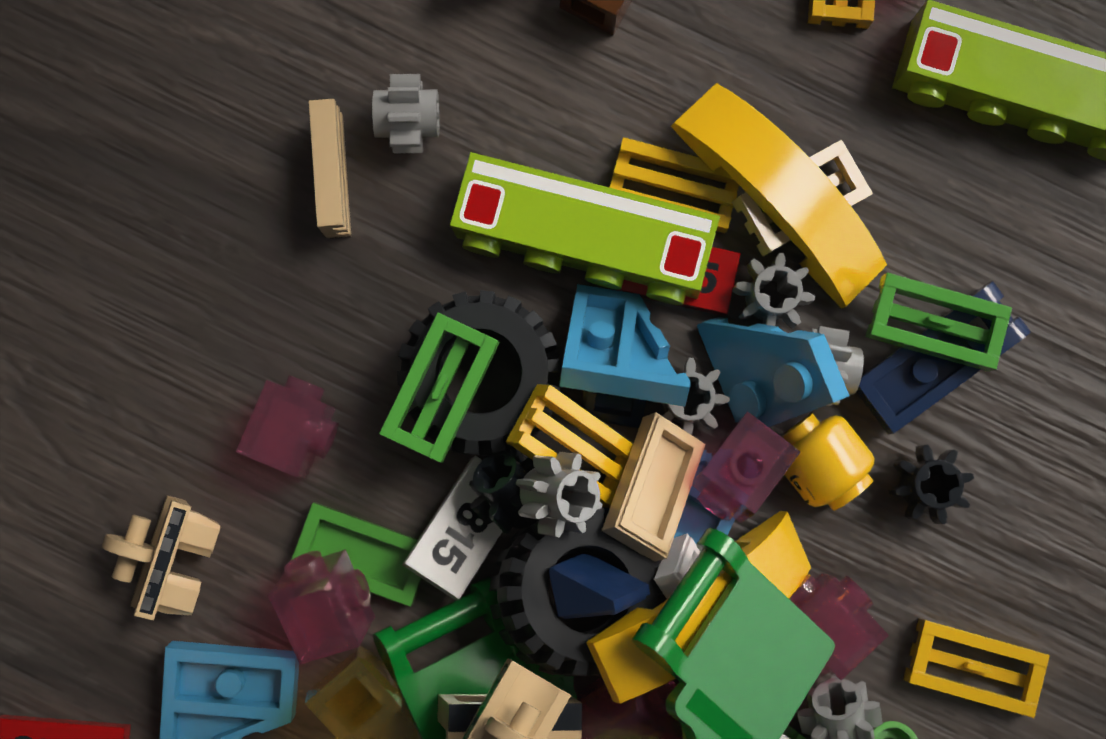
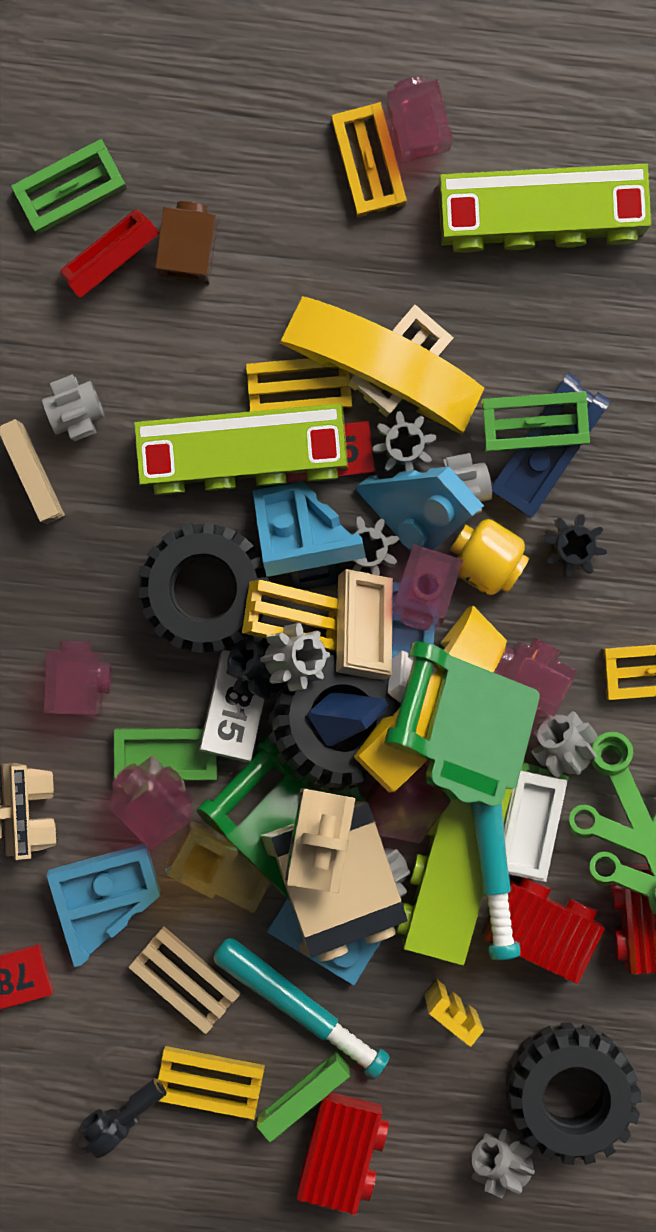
camera: 15 degrees left, 5 degrees up
(415, 377) = (182, 566): bright green tile -> none

